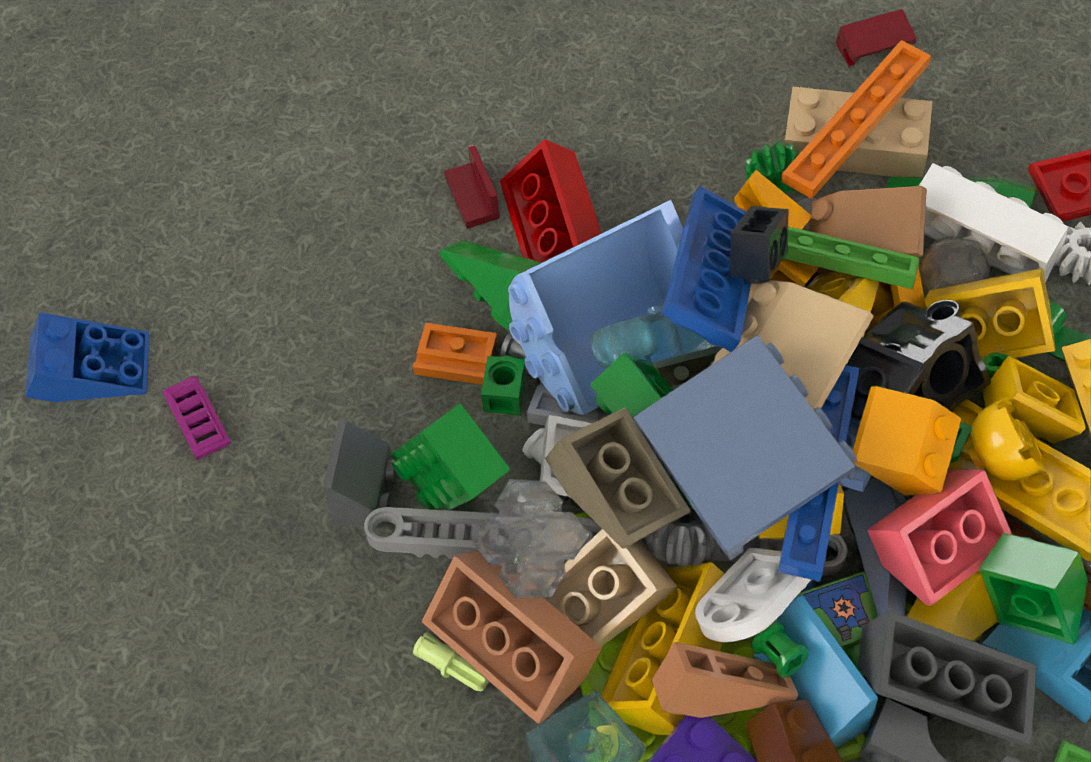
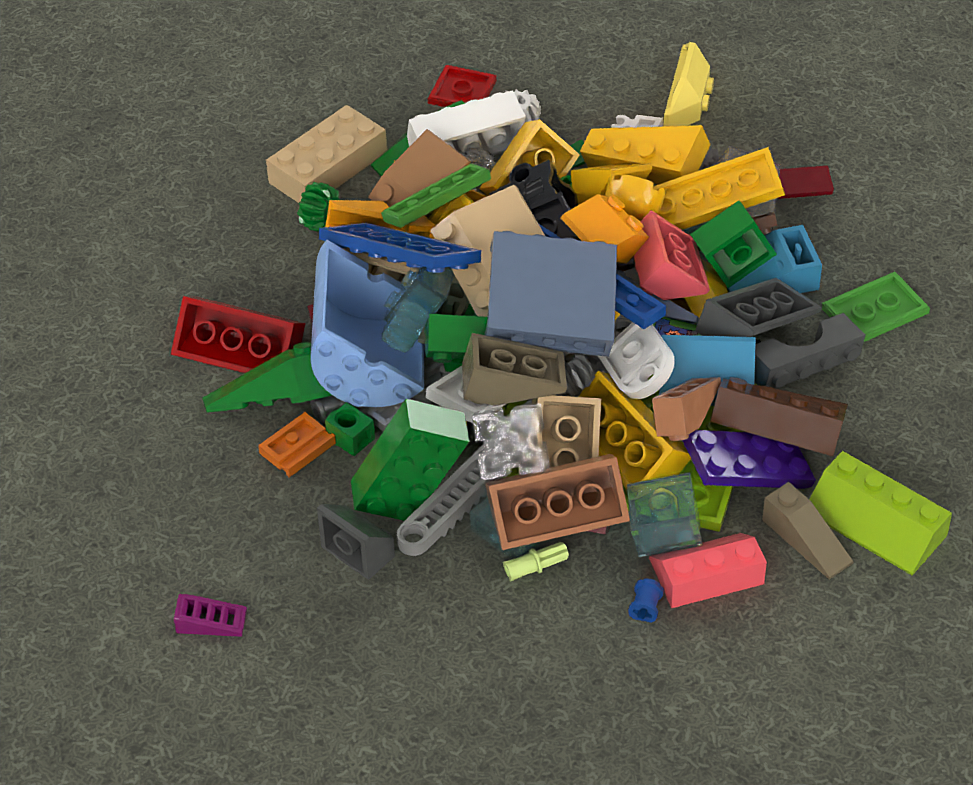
camera: 60 degrees left, 10 degrees down
(85, 360) = (90, 663): blue slope -> none
(473, 191) = (168, 365): dark red panel -> none
(759, 244) = (409, 211): black brick -> none
(780, 649) = (696, 370): green bush -> none
(855, 119) = (332, 139): orange plate -> none
(874, 35) = (259, 108): dark red hinge -> none

